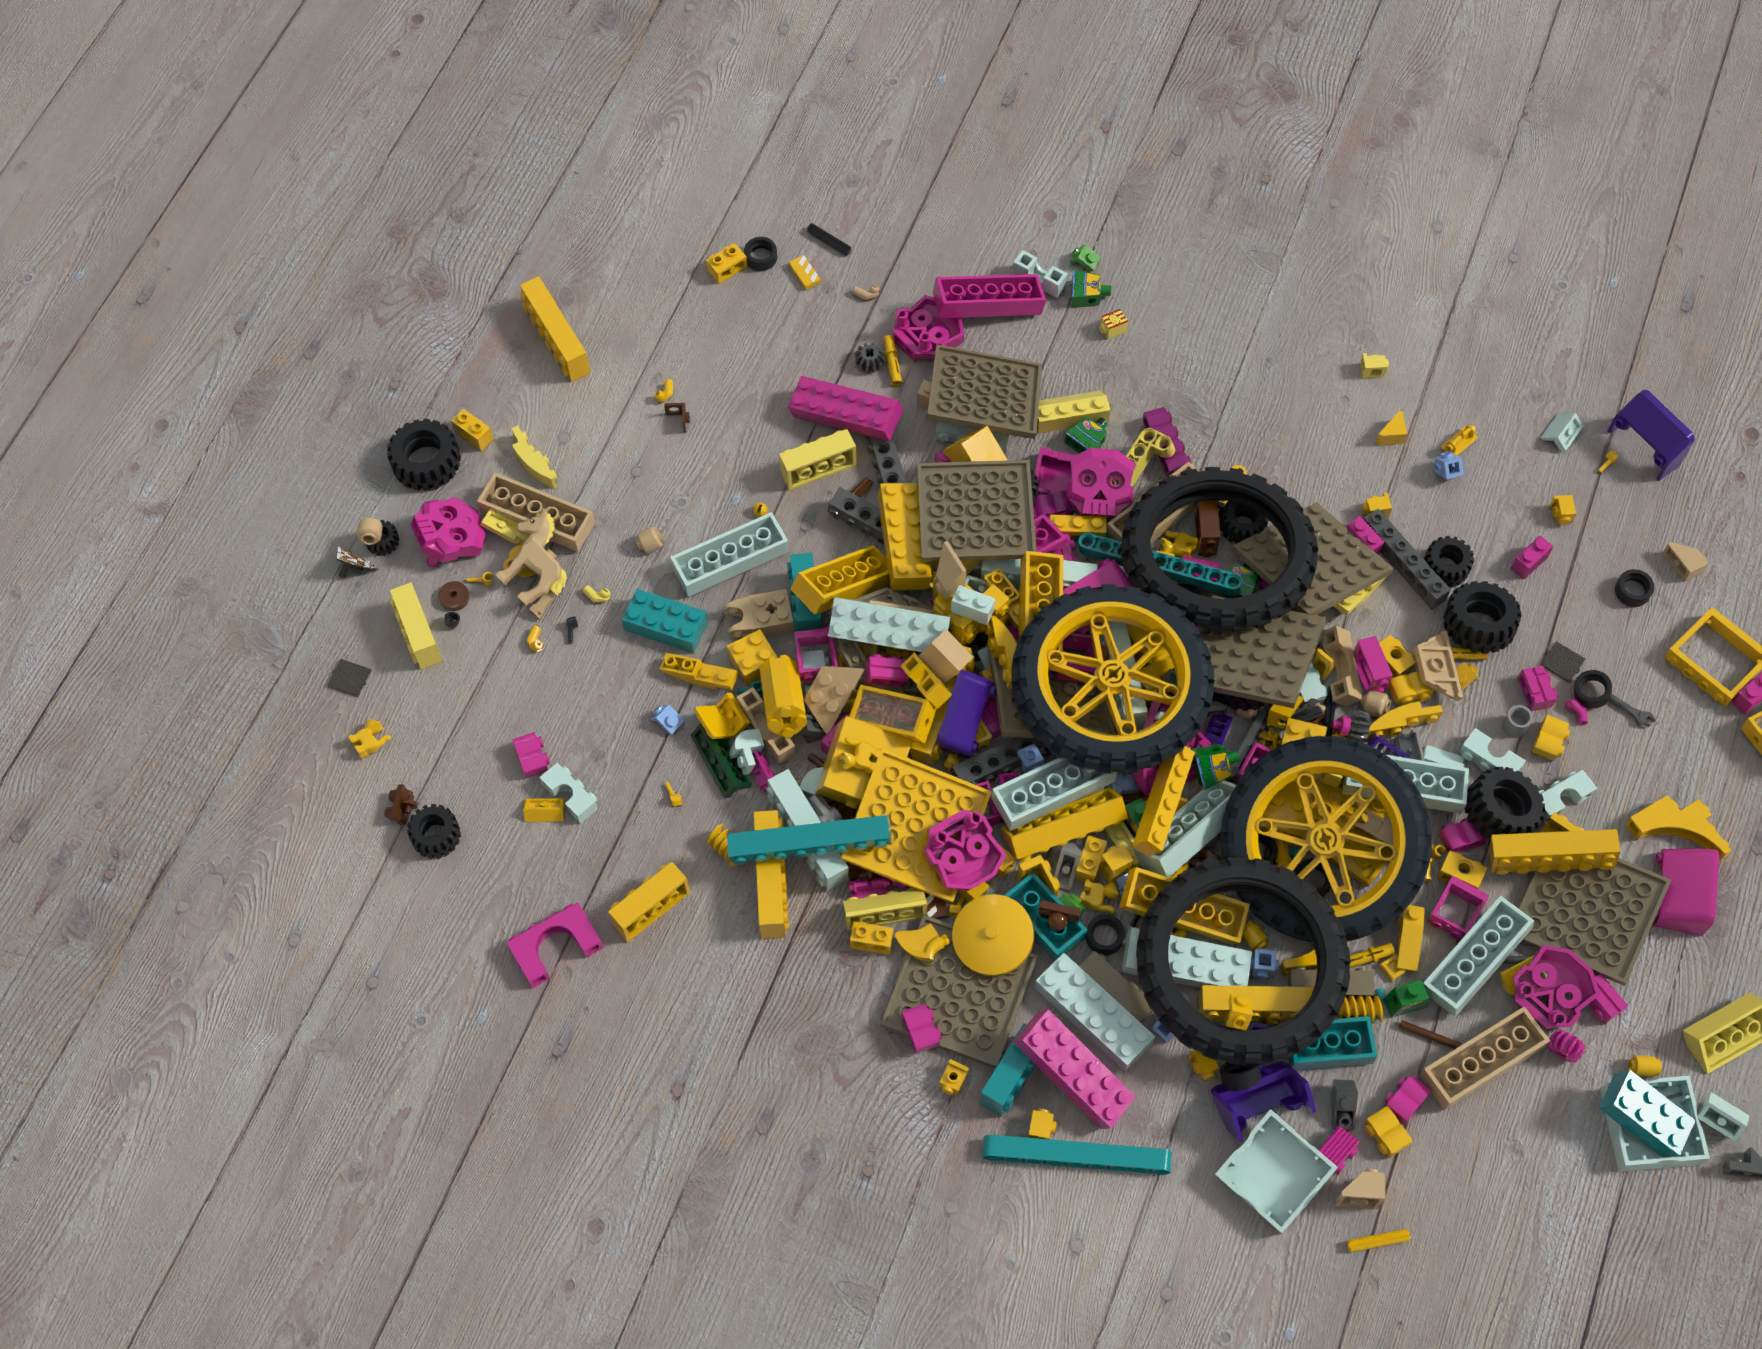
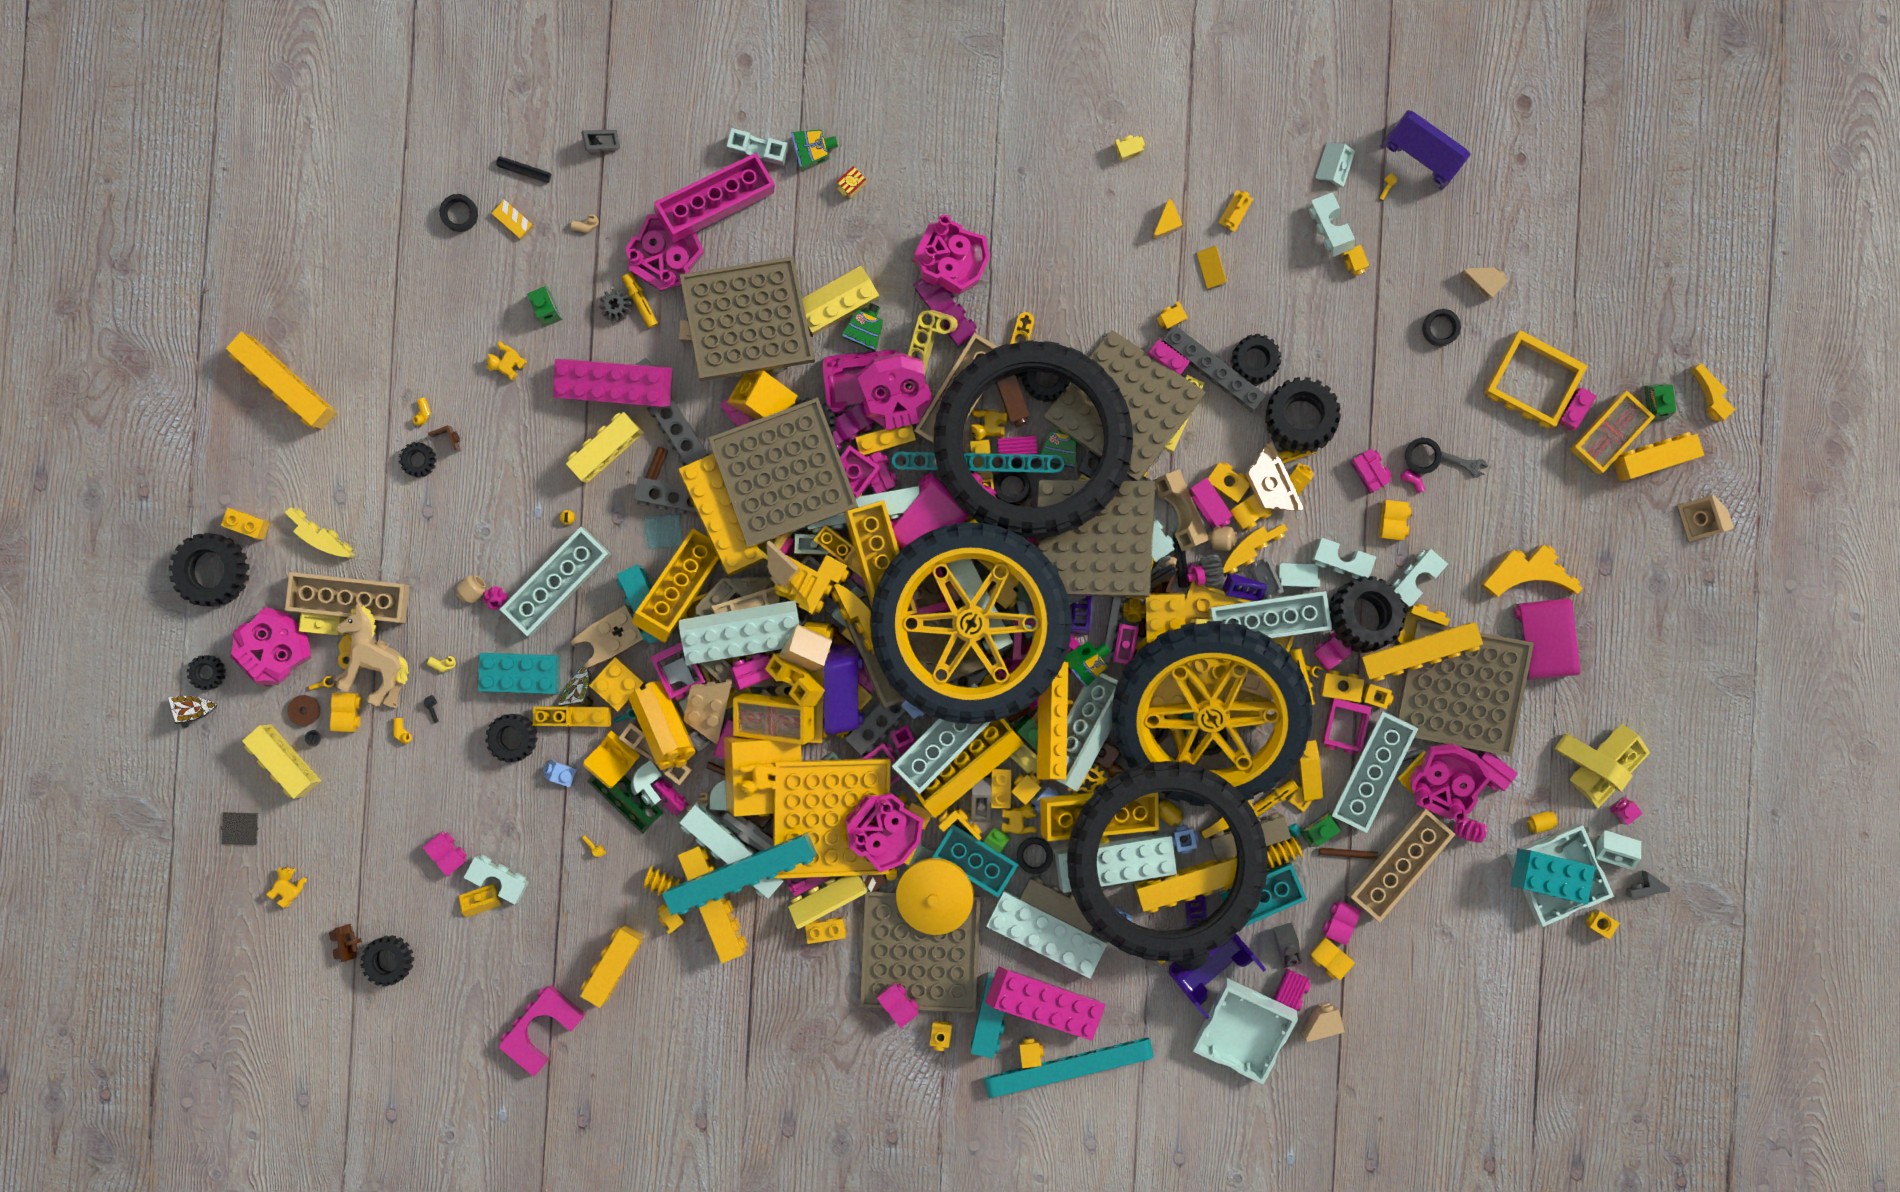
camera: 15 degrees left, 25 degrees up
(369, 531) = (193, 677): tan head -> none
(491, 605) = (345, 712): none -> yellow brick
(630, 659) = (495, 742): none -> black tyre
(645, 416) = (406, 459): none -> black tyre
(666, 548) = (495, 598): none -> dark pink gear
(715, 651) = (577, 689): none -> shield
(723, 879) = (666, 919): none -> yellow brick
(726, 263) = (427, 236): yellow brick -> none
(757, 374) = (507, 363): none -> yellow animal
(807, 333) = (544, 305): none -> green torso
(842, 544) = (663, 531): none -> clear light blue piece
(903, 232) = (600, 140): none -> dark grey slope
(922, 942) = (872, 921): yellow arm -> none
(973, 605) = (814, 590): light aqua brick -> none
(1058, 914) = (989, 864): reddish brown tile -> none
(1085, 257) = (798, 107): bright green bracket -> none
(1186, 397) = (940, 252): none -> dark pink brick
(1239, 1012) = (1178, 920): yellow bracket -> none
(1323, 664) = (1163, 513): yellow slope -> none
(1378, 1240) = (1346, 1055): yellow axle -> none
(1424, 480) = (1211, 267): none -> yellow slope
(1448, 465) = (1232, 247): light blue brick -> none
(1497, 885) = (1385, 696): none -> yellow brick
(1517, 721) = (1359, 513): light grey piece -> none
(1531, 557) = (1335, 326): dark pink brick -> none
(1544, 466) = (1337, 238): none -> light aqua arch
(1562, 662) = (1388, 430): clear smoke piece -> none
(1700, 1190) = (1609, 926): none -> yellow brick
(1716, 1014) = (1594, 761): none -> light yellow beam
(1738, 1082) = (1626, 811): none -> dark pink brick

